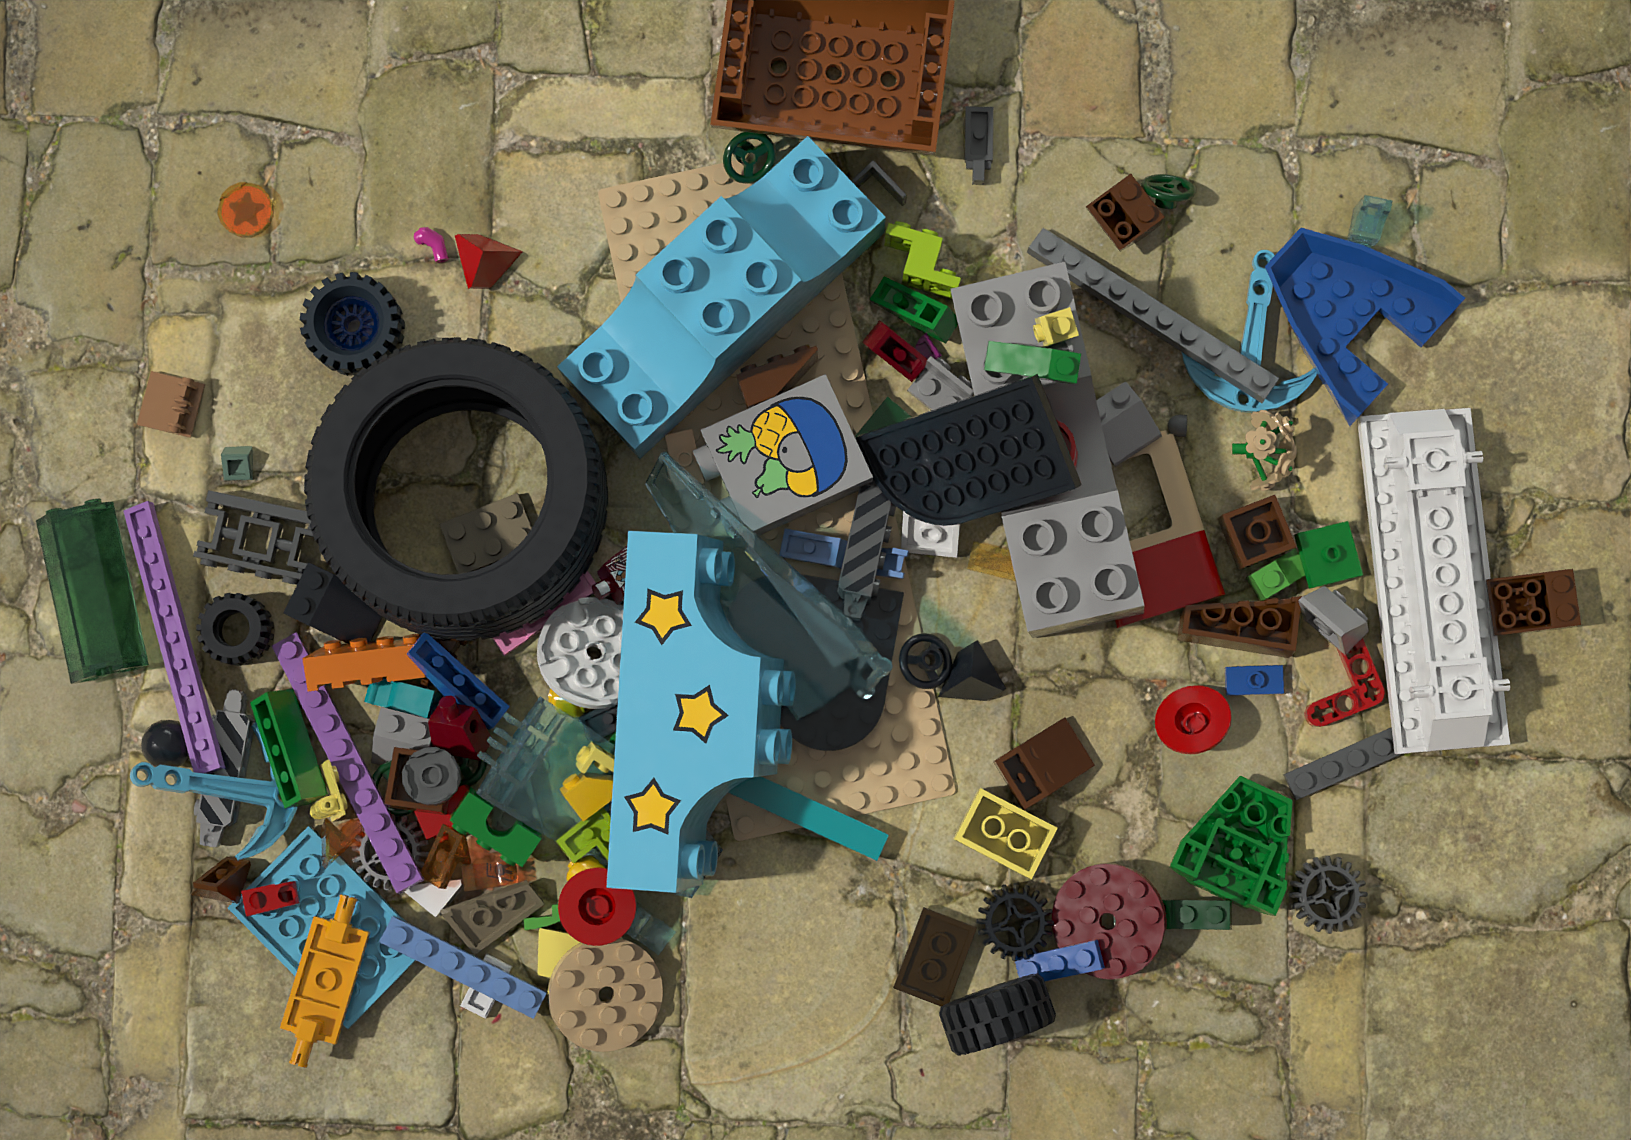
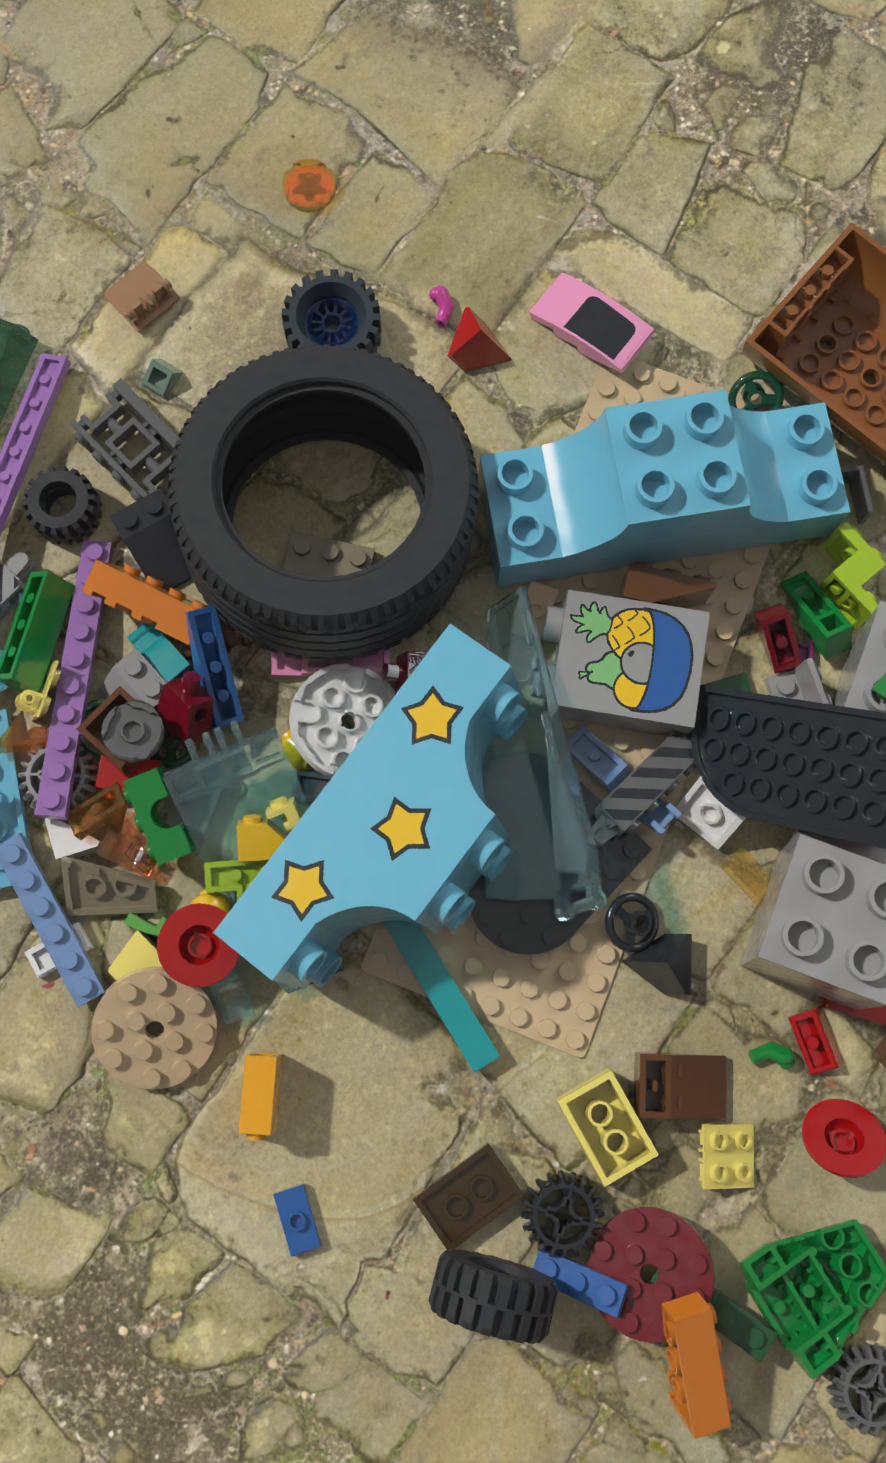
camera: 25 degrees right, 5 degrees down
(569, 177) = (592, 322): none -> bright pink slope
(723, 988) = (260, 1095): none -> light orange brick
(814, 1063) = (297, 1219): none -> blue plate
(1101, 688) = (782, 1055): none -> green arm
(1114, 793) = (726, 1156): none -> light yellow hinge
(1128, 657) = (816, 1040): none -> red slope
(1177, 961) = (695, 1365): none -> orange wedge

